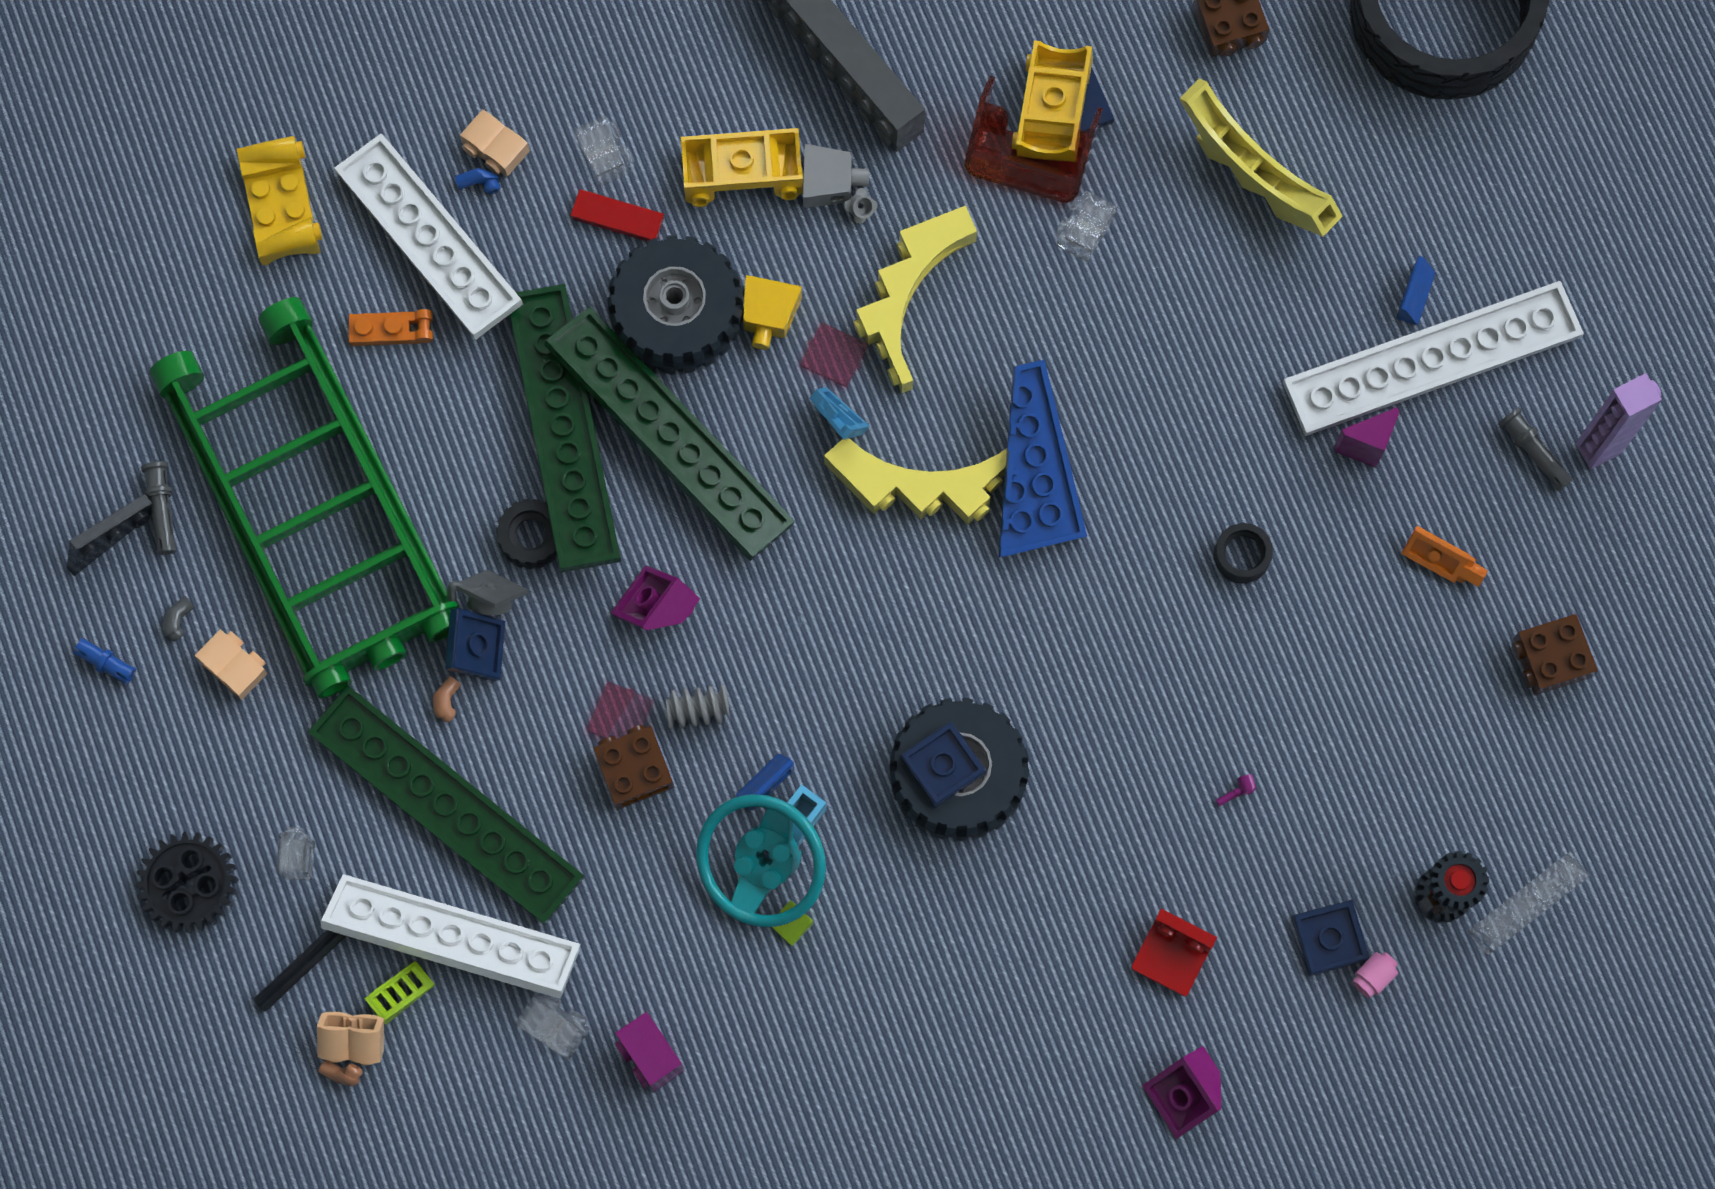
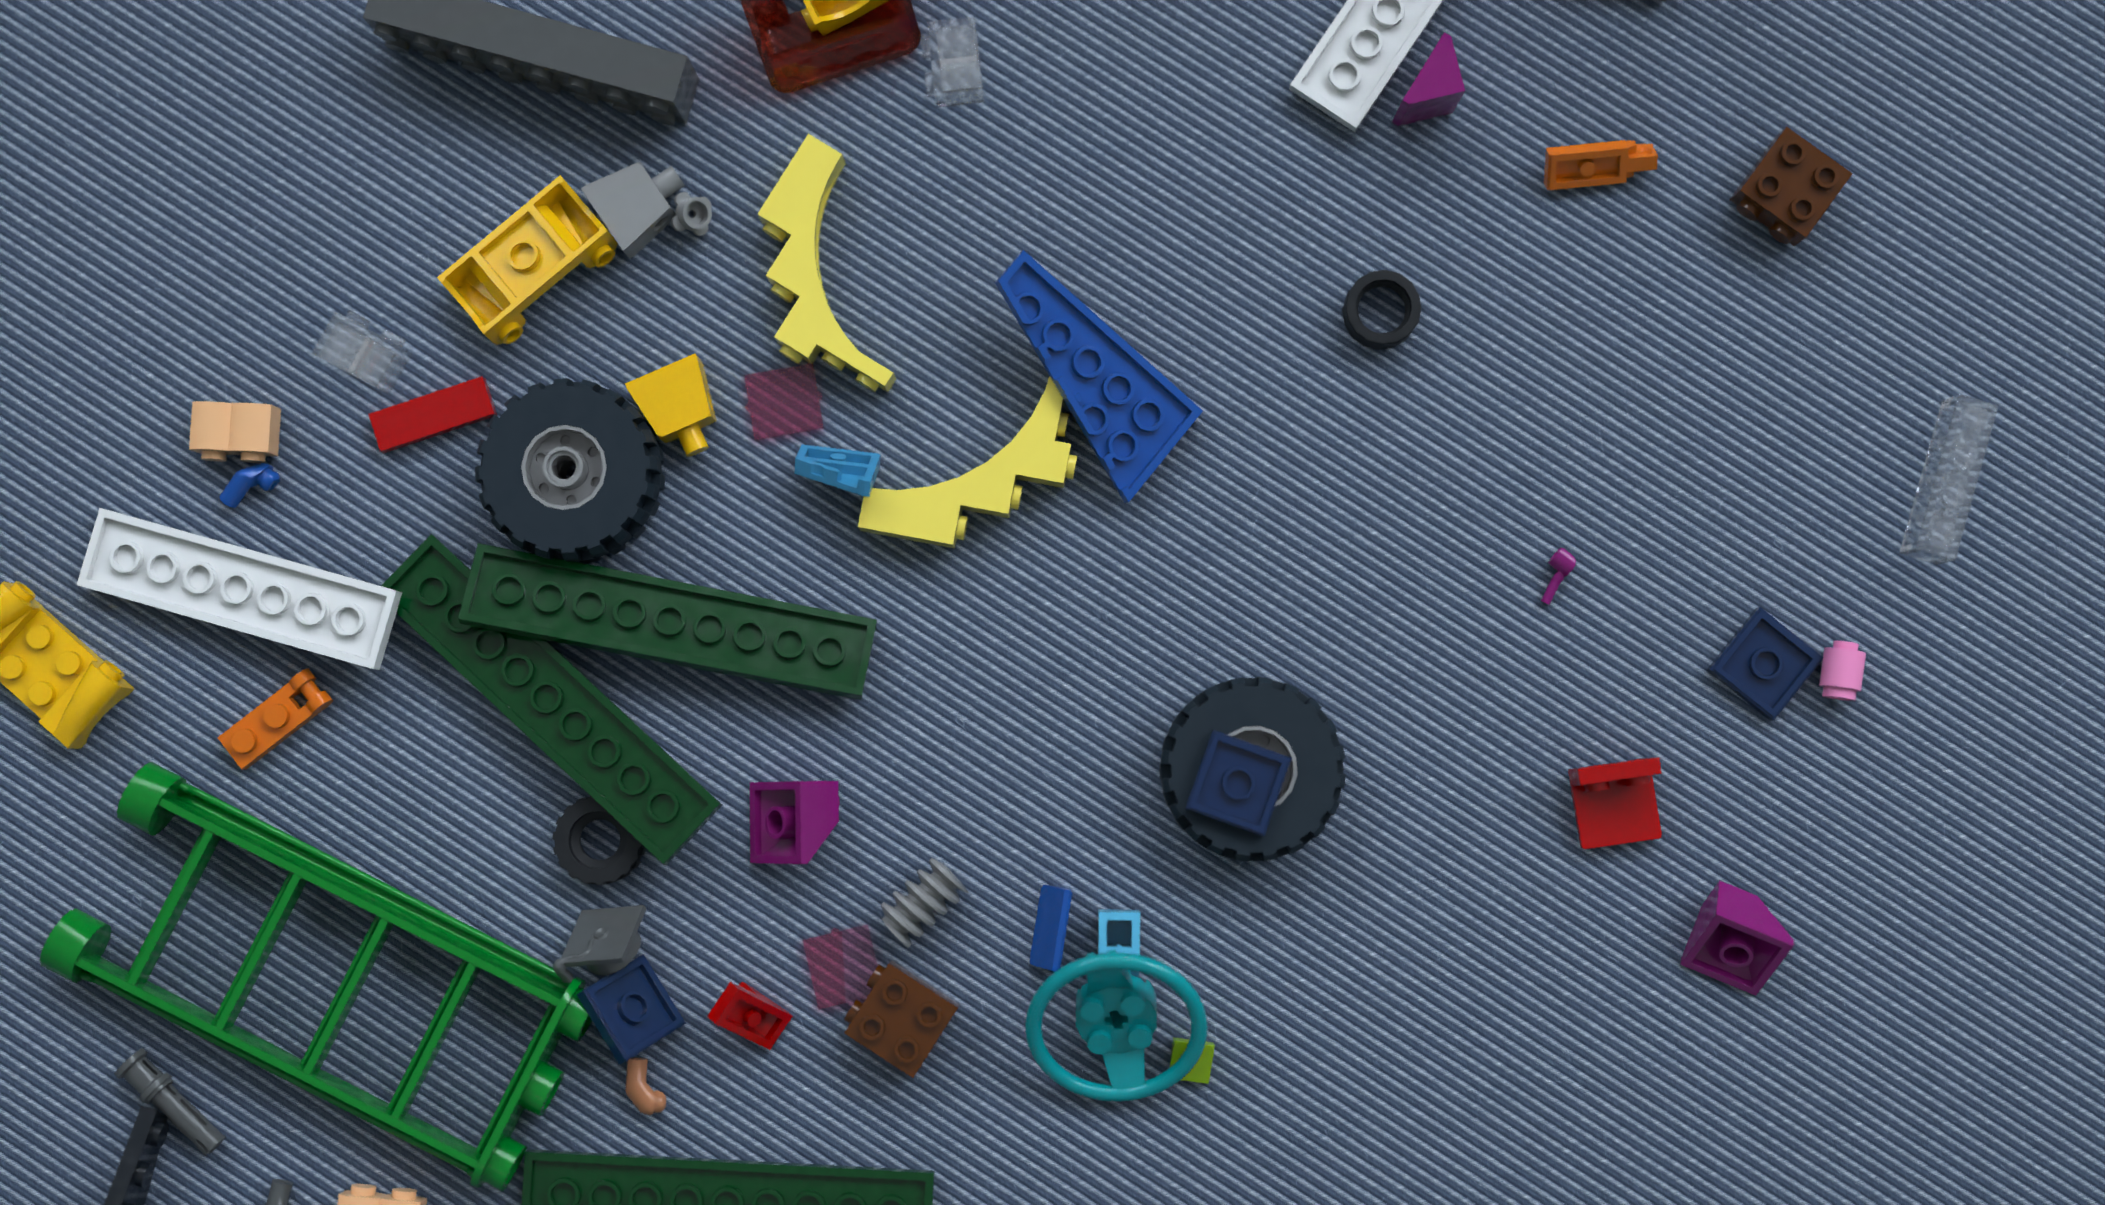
camera: 30 degrees left, 10 degrees up
(543, 700) = (750, 1014): none -> red slope
(1451, 887) = (1875, 528): black plate -> none

